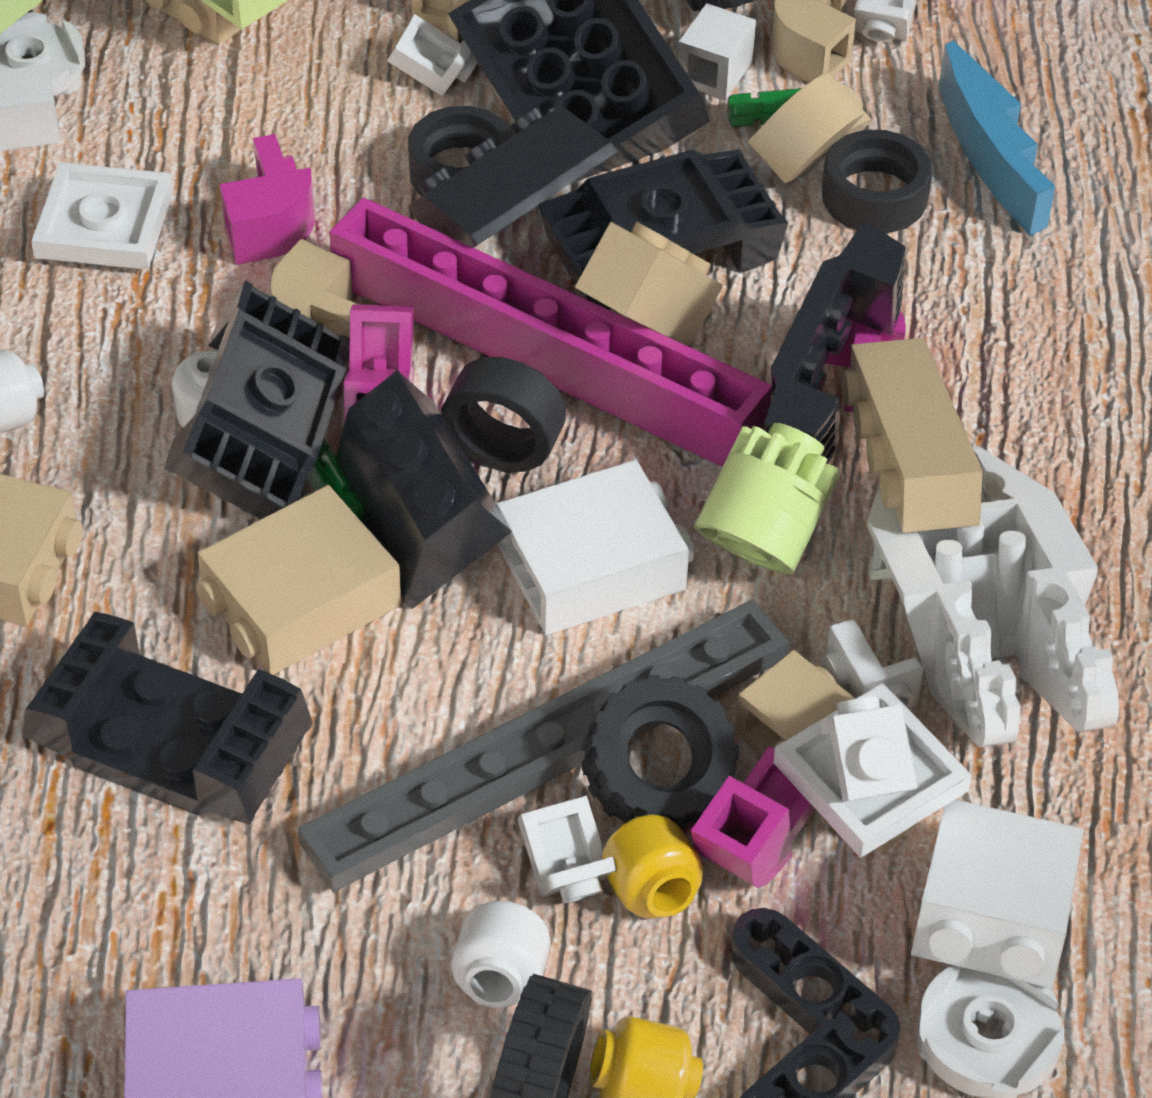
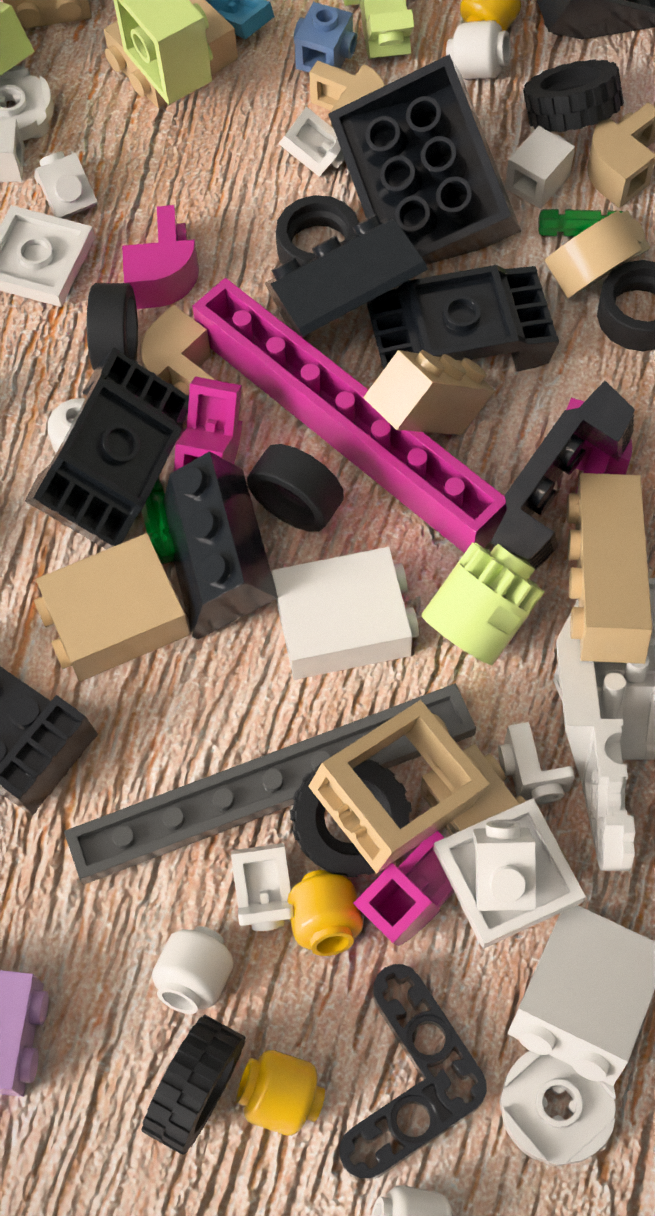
camera: 15 degrees right, 15 degrees up
(122, 133) = (64, 184): none -> white bracket
(225, 260) = (111, 321): none -> black tyre
(714, 738) = (360, 812): none -> tan window

